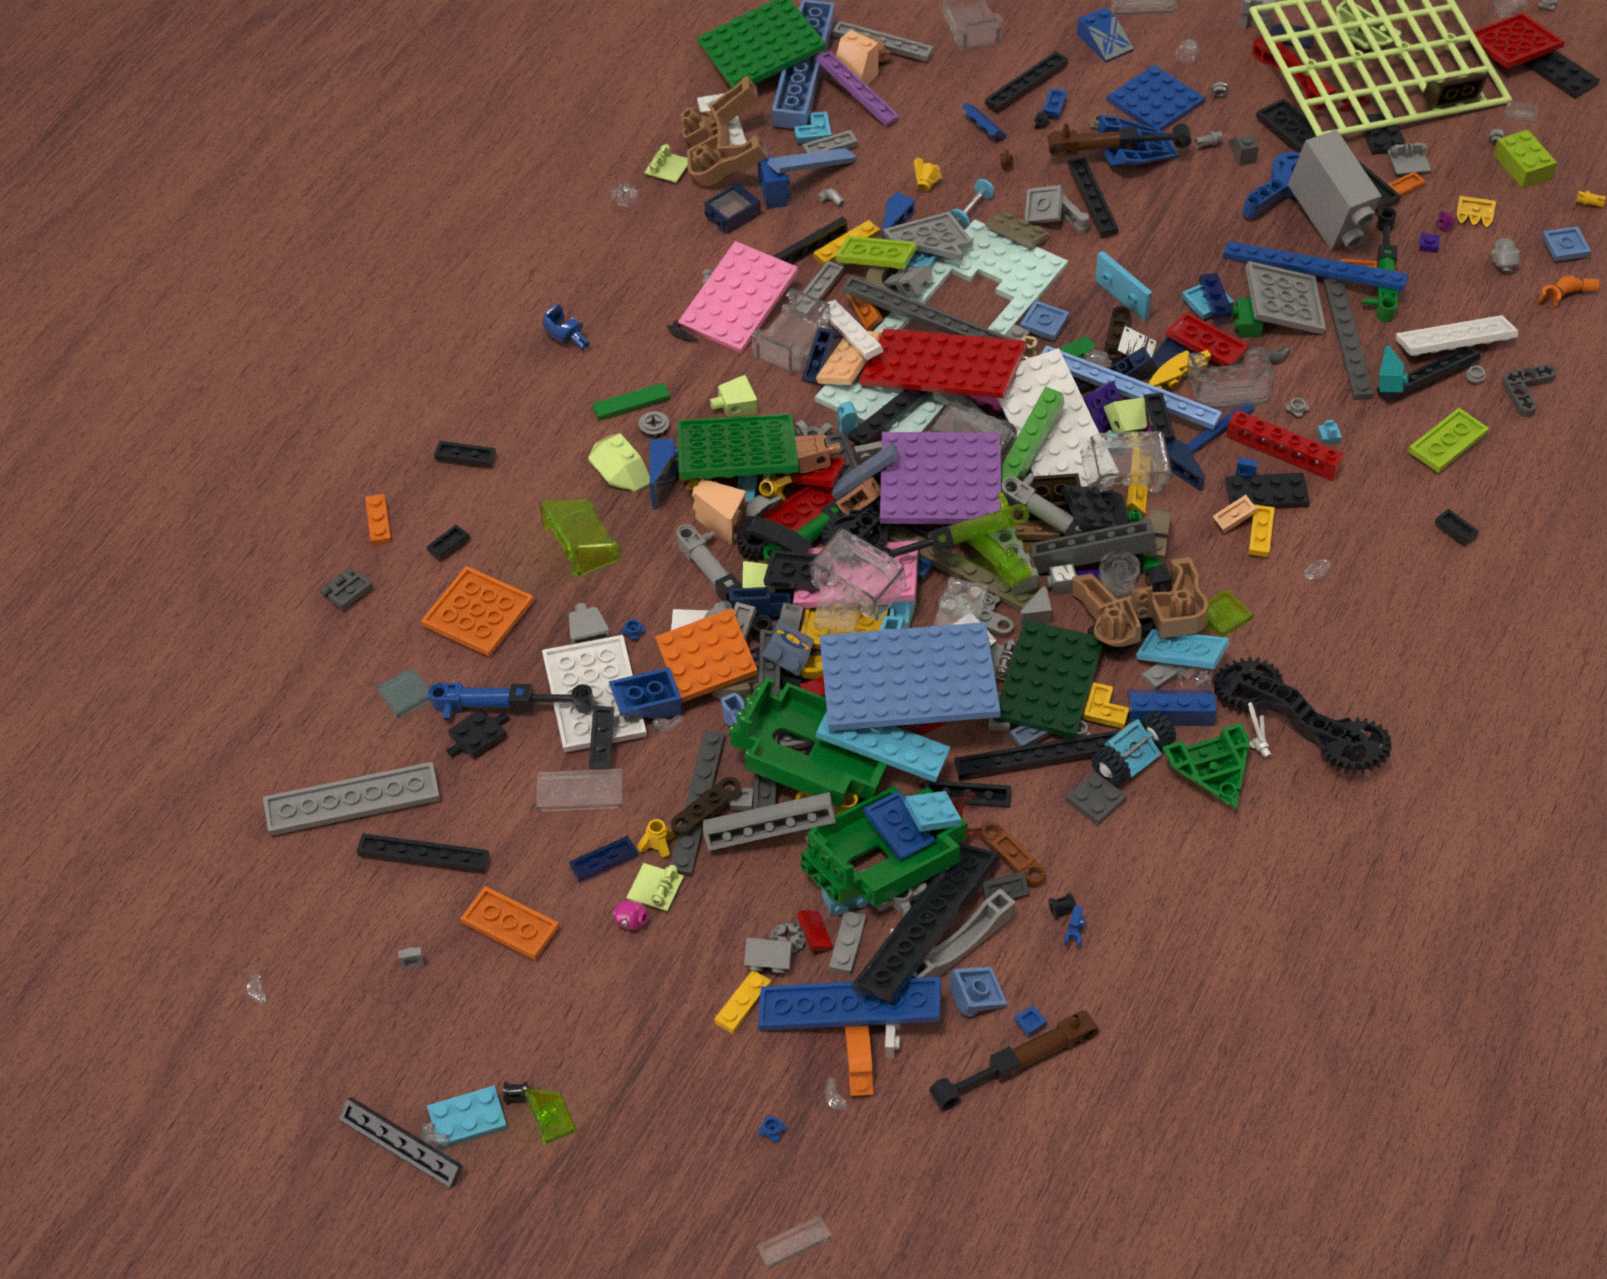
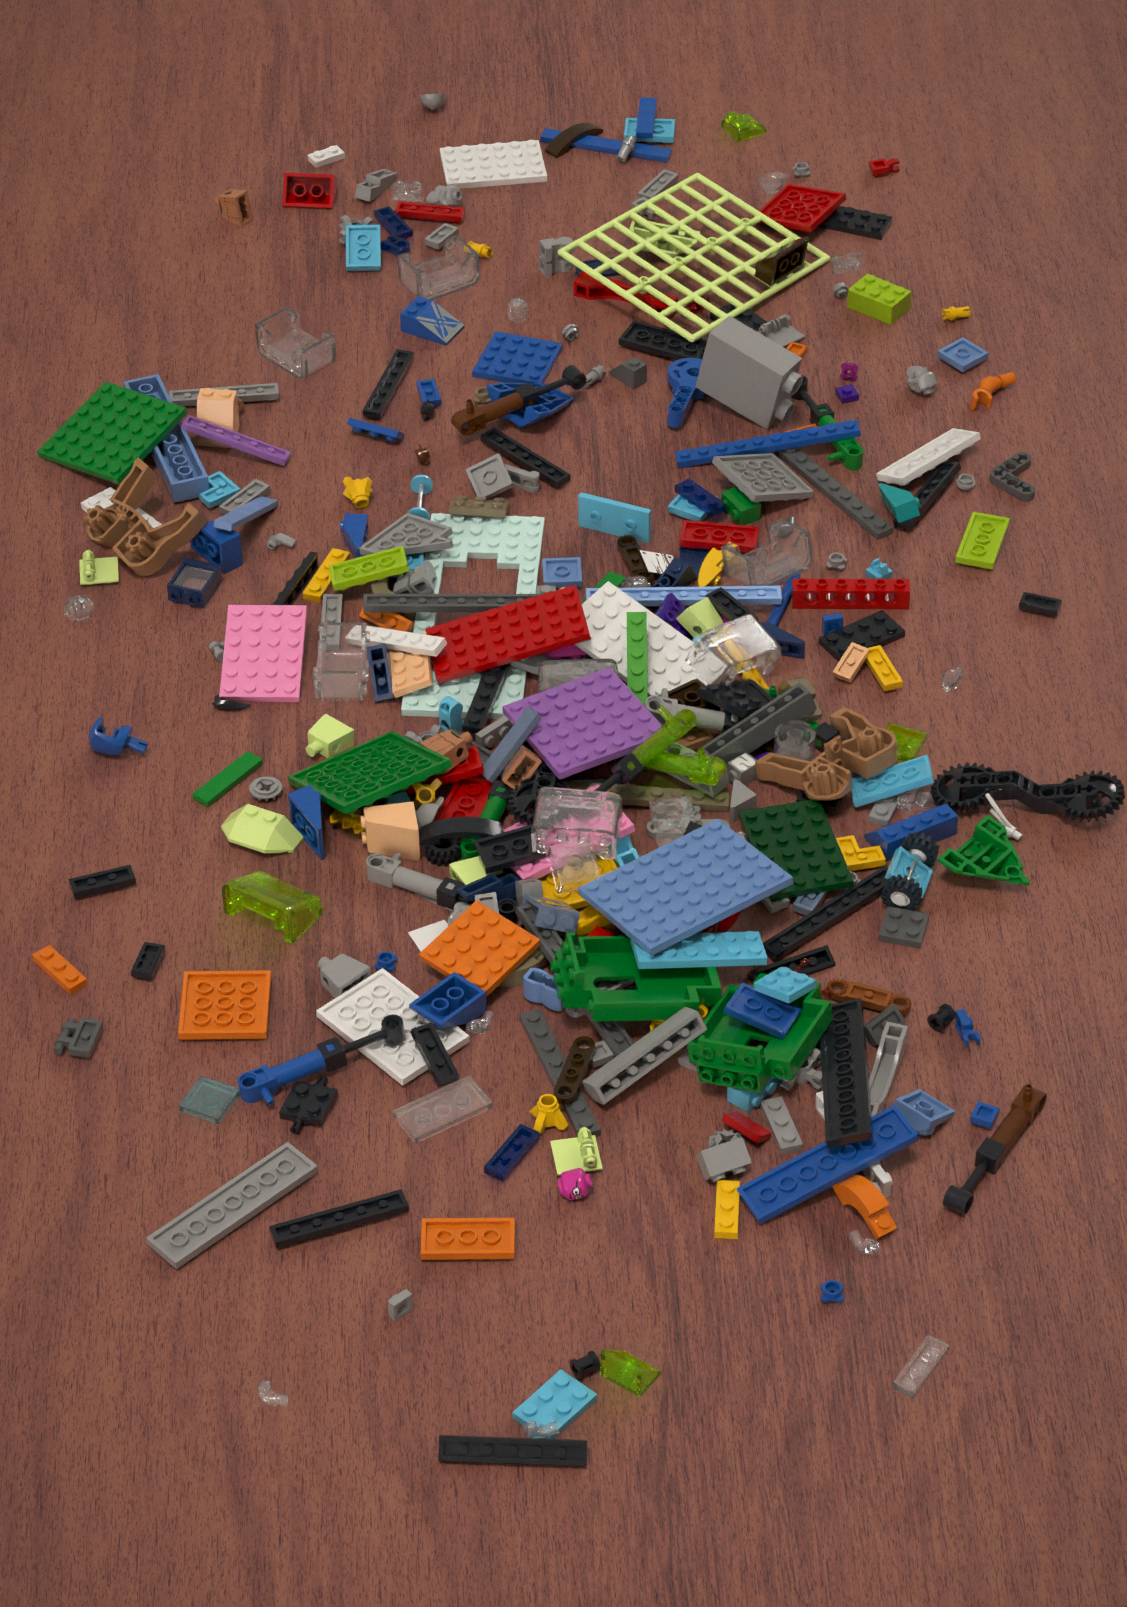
camera: 30 degrees left, 10 degrees down
(1475, 210) = (868, 353): yellow plate -> none

